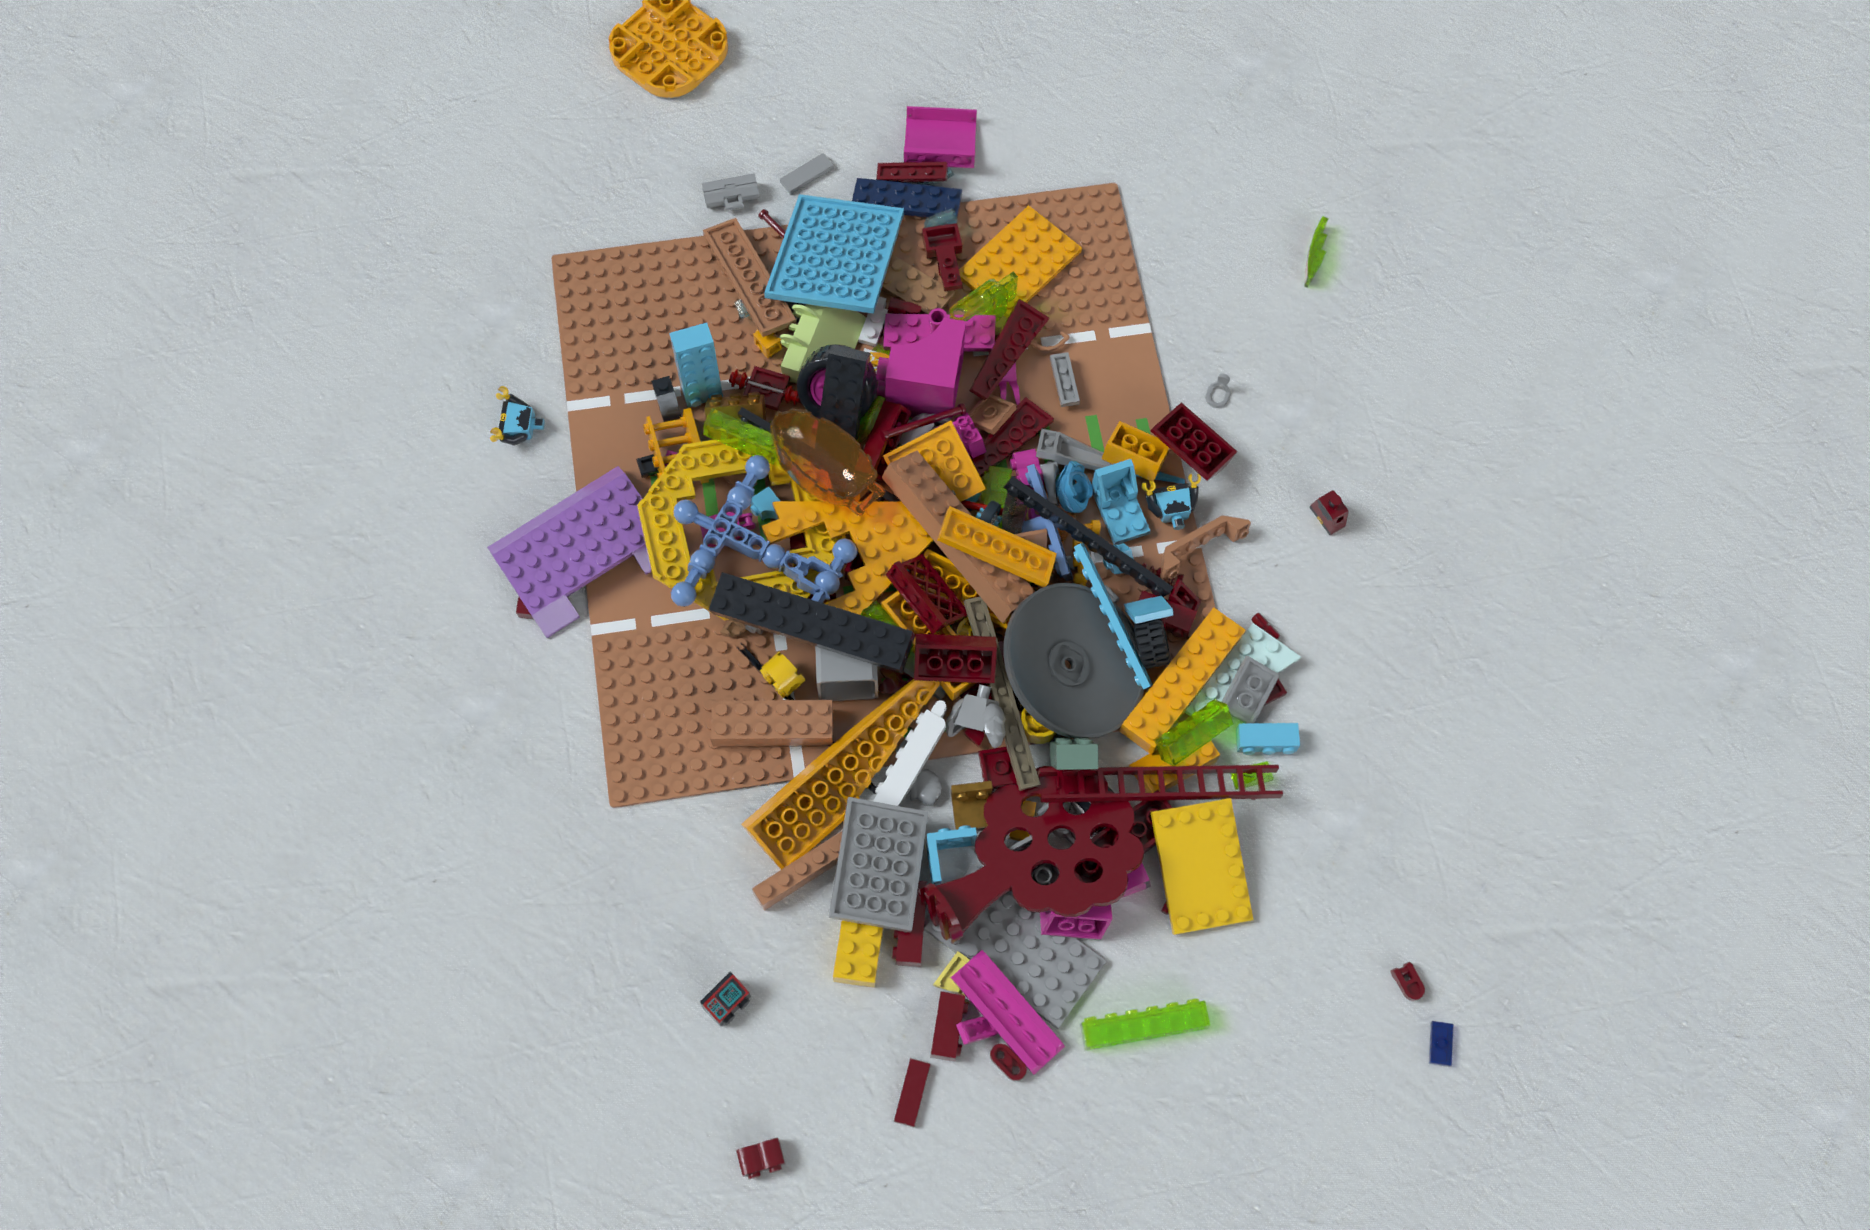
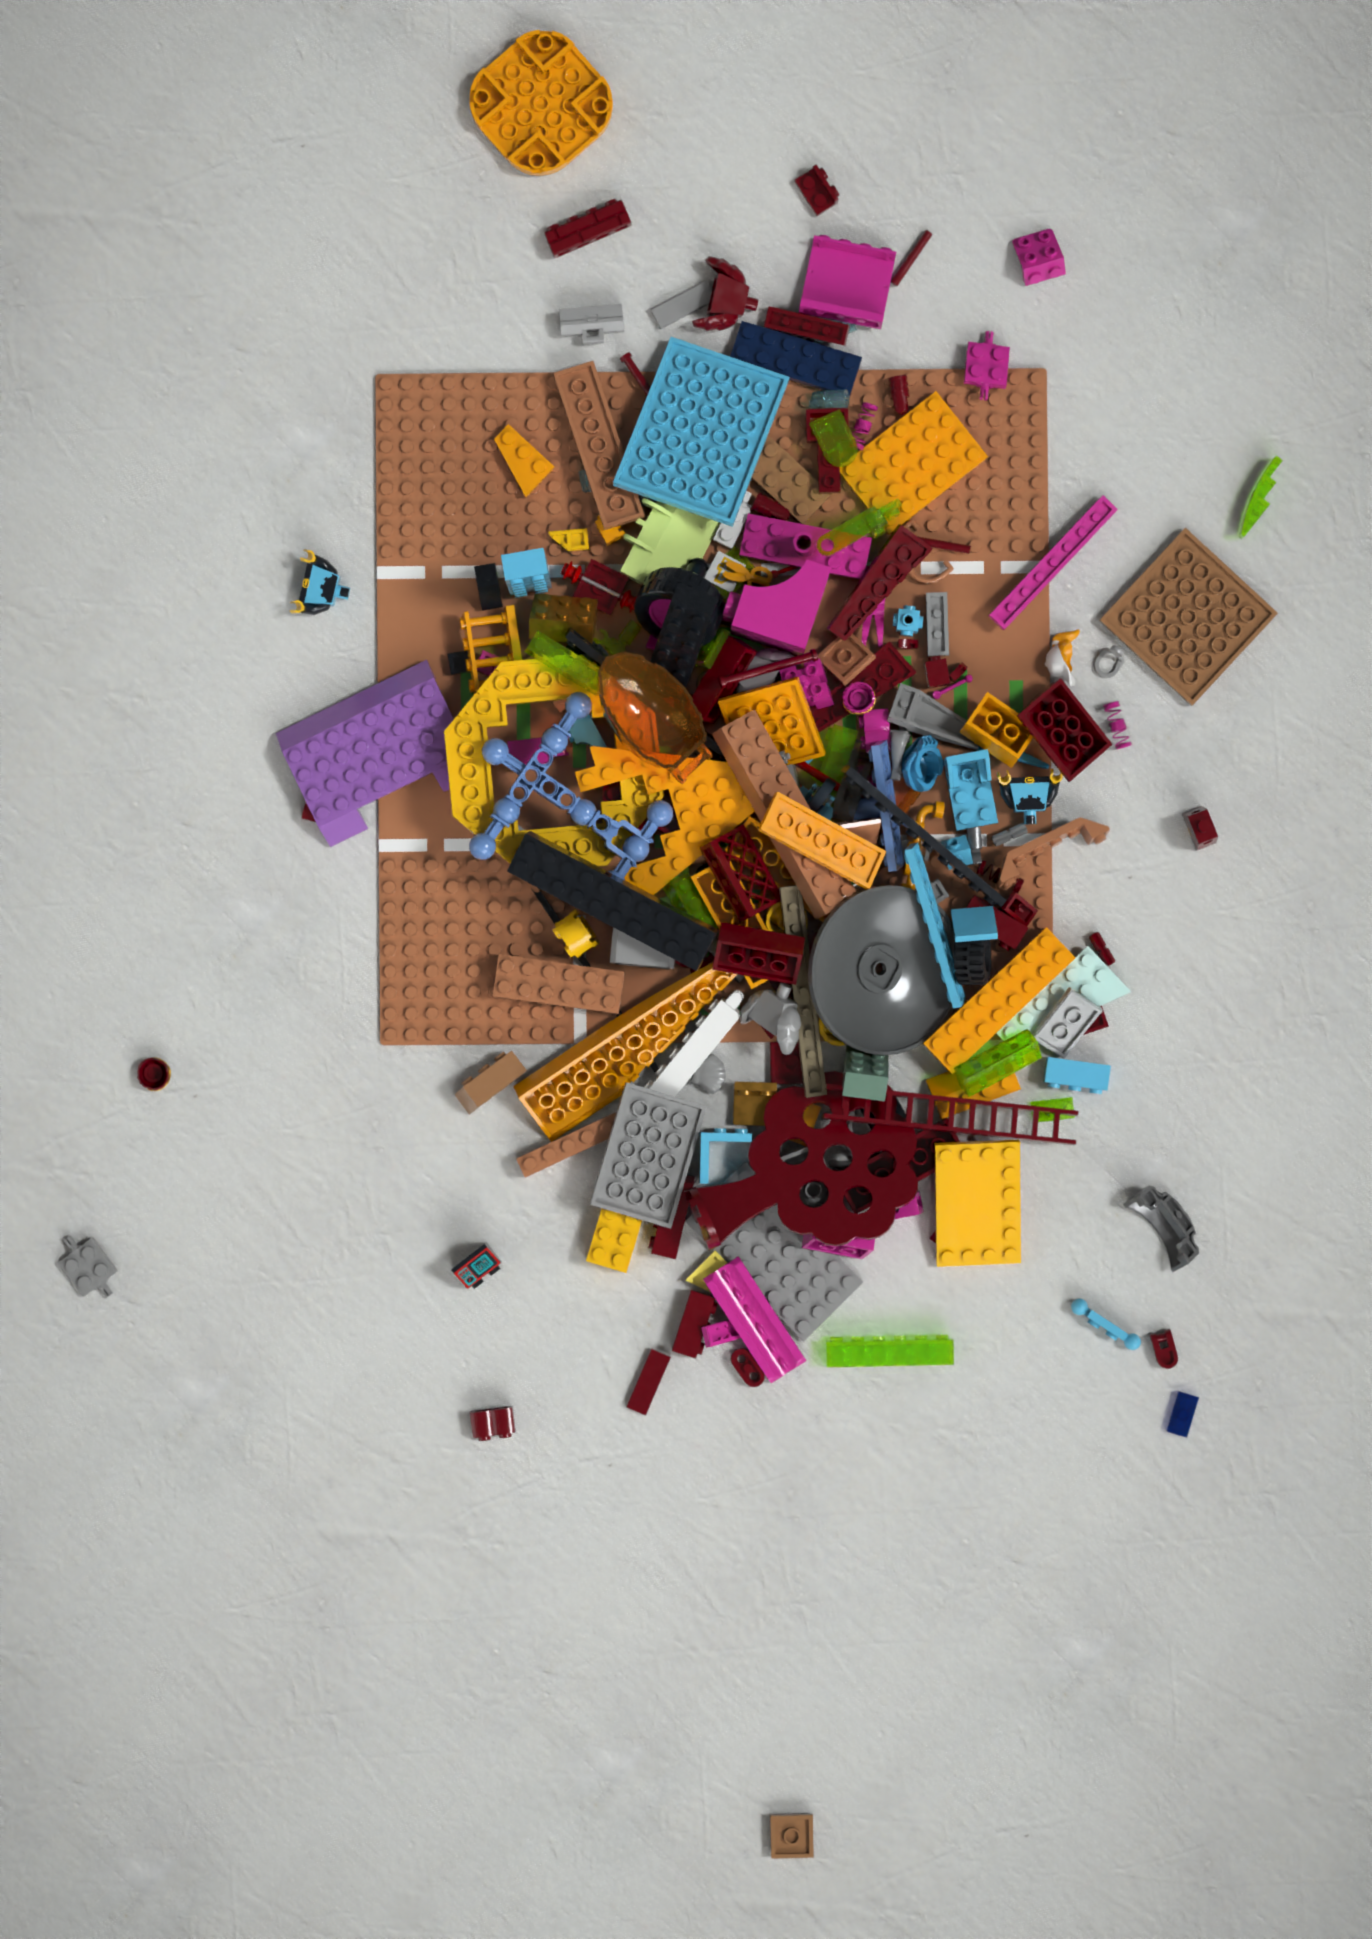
camera: 10 degrees right, 20 degrees up
(336, 1062) = (88, 1267): none -> light grey plate
(391, 863) = (153, 1074): none -> dark red hair
(687, 301) = (523, 460): none -> light orange wing
(717, 822) = (489, 1081): none -> medium nougat wedge
(718, 127) = (587, 228): none -> dark red brick
(735, 356) = (571, 539): none -> yellow tile
(842, 161) = (728, 297): none -> dark red torso
(904, 79) = (817, 190): none -> dark red bracket
(950, 245) = (835, 439): none -> clear neon green window
(968, 238) = (862, 425): none -> dark pink piece
(989, 118) = (911, 258): none -> dark red bar
(998, 210) = (899, 393): none -> dark red hinge
(1007, 441) = (859, 698): none -> dark pink hair
(1038, 378) = (904, 628): none -> medium azure brick
(1041, 398) = (907, 644): none -> dark red tile
(1064, 320) = (947, 545): none -> dark red bar
(1067, 183) = (986, 365): none -> dark pink plate
(1072, 417) = (936, 672): none -> dark red brick
(1089, 415) = (958, 672): none -> dark red tile
(1095, 104) = (1039, 256): none -> dark pink bracket
(1100, 420) = (937, 694): none -> dark pink hinge
(1132, 543) = (975, 844): none -> flat silver bar
(1153, 320) = (1053, 562): none -> dark pink plate
(1165, 538) = (1013, 832): none -> light grey piece
(1175, 391) = (1060, 655): none -> hair
(1236, 441) = (1118, 725): none -> dark pink piece
(1278, 349) = (1188, 616): none -> medium nougat plate
(1354, 969) = (1080, 1307): none -> medium azure plate
(1383, 861) = (1169, 1222): none -> flat silver windscreen

